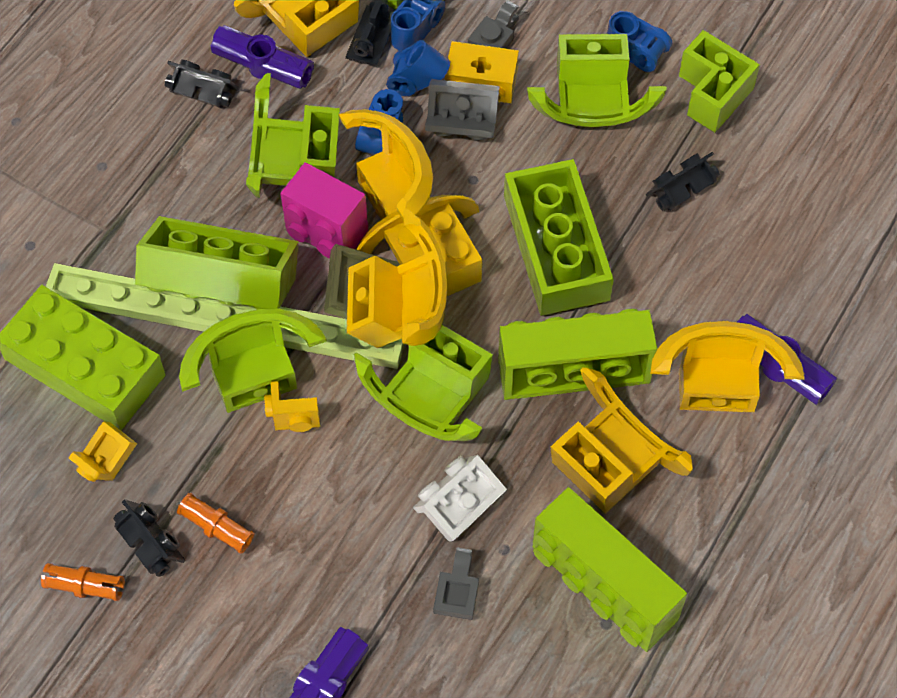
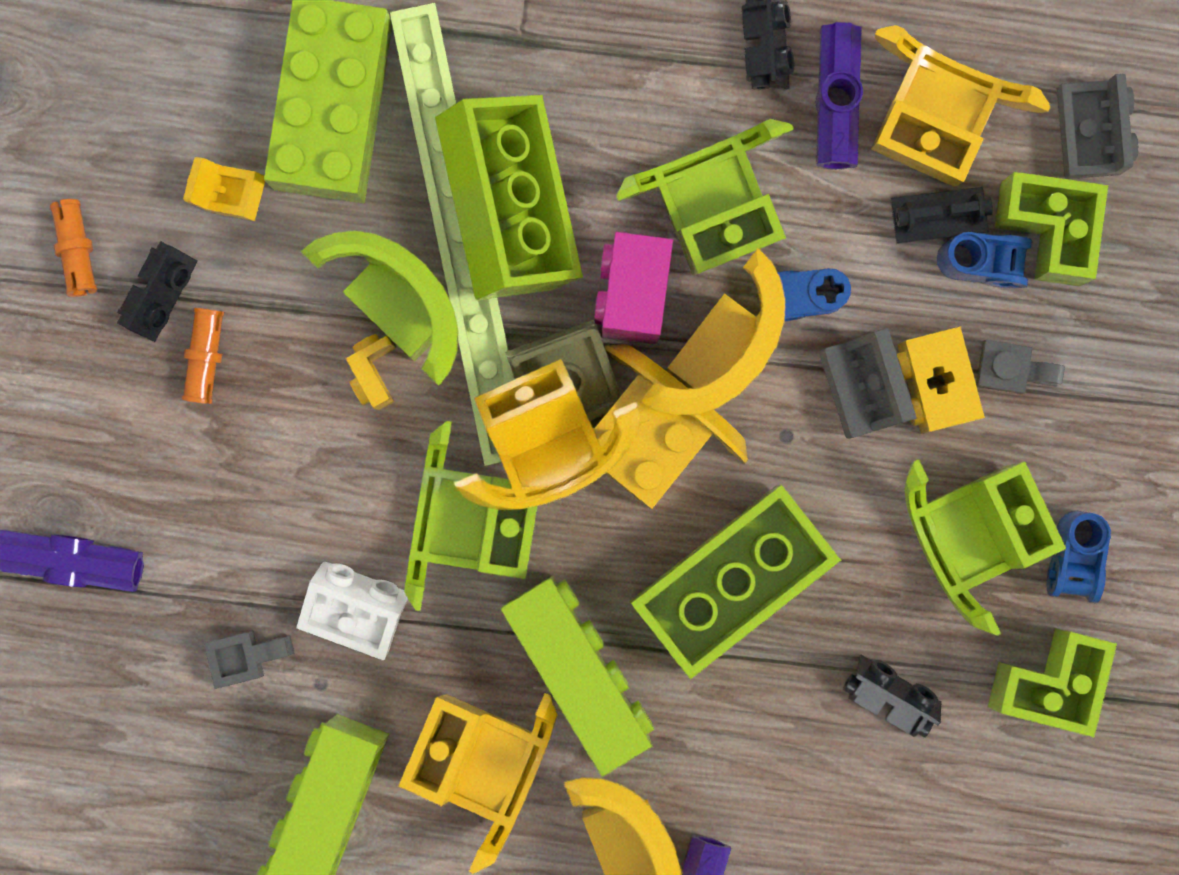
camera: 65 degrees right, 25 degrees up
(416, 68) = (902, 302): blue piece -> none

